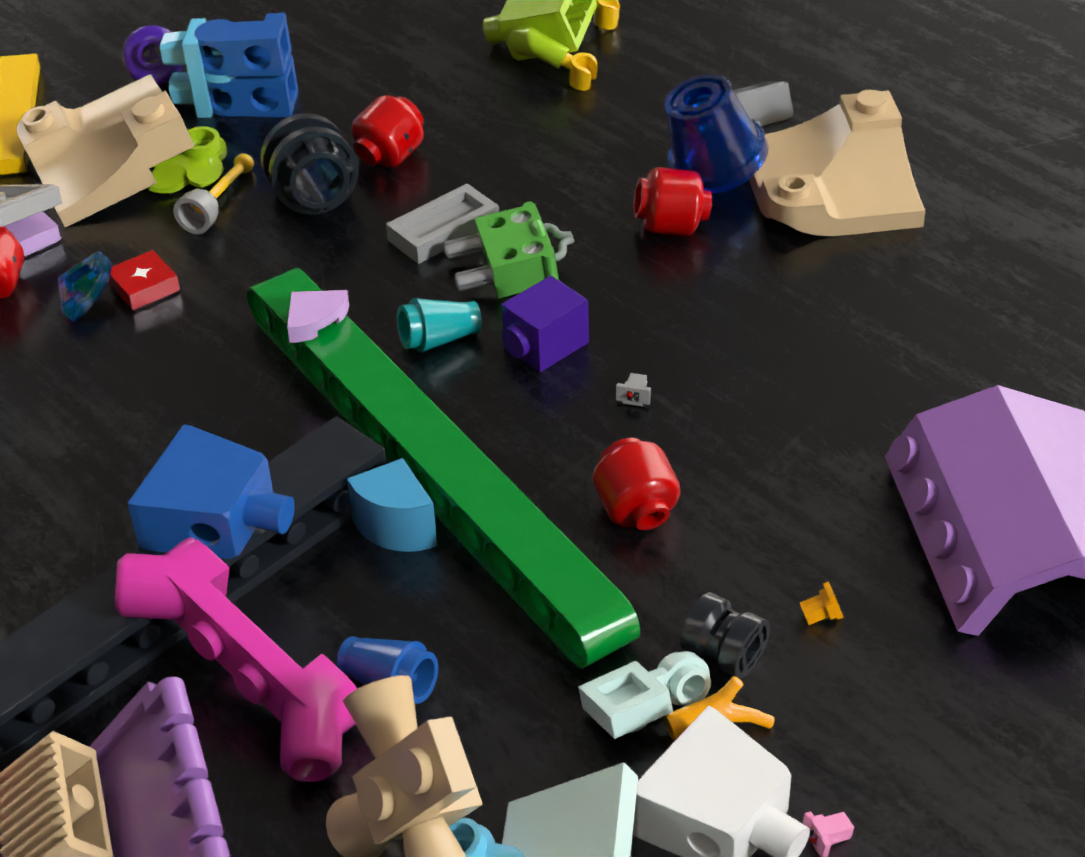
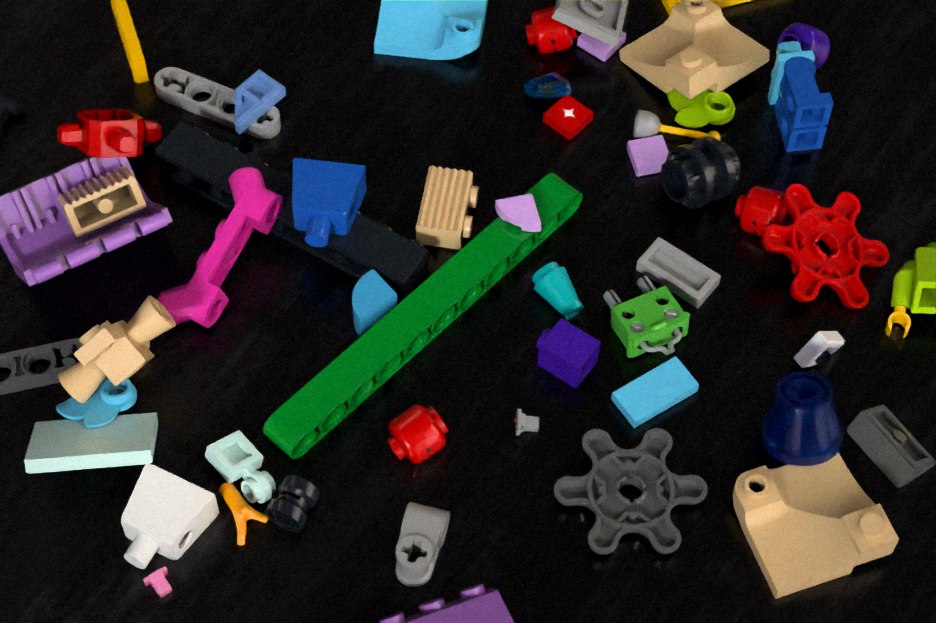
camera: 75 degrees right, 15 degrees up
(246, 218) = (647, 154): none -> lavender tile
(252, 406) = (445, 208): none -> tan brick
(378, 659) = (242, 334): blue cone -> none
(464, 91) = (838, 232): none -> red plate
(599, 127) = (817, 345): none -> white tile
(620, 268) = (654, 392): none -> medium azure tile
(671, 201) = (731, 410): red head -> none
(773, 277) = (638, 467): none -> dark grey plate
(811, 500) = (420, 539): none -> light grey piece
(821, 606) = (337, 562): light orange piece -> none

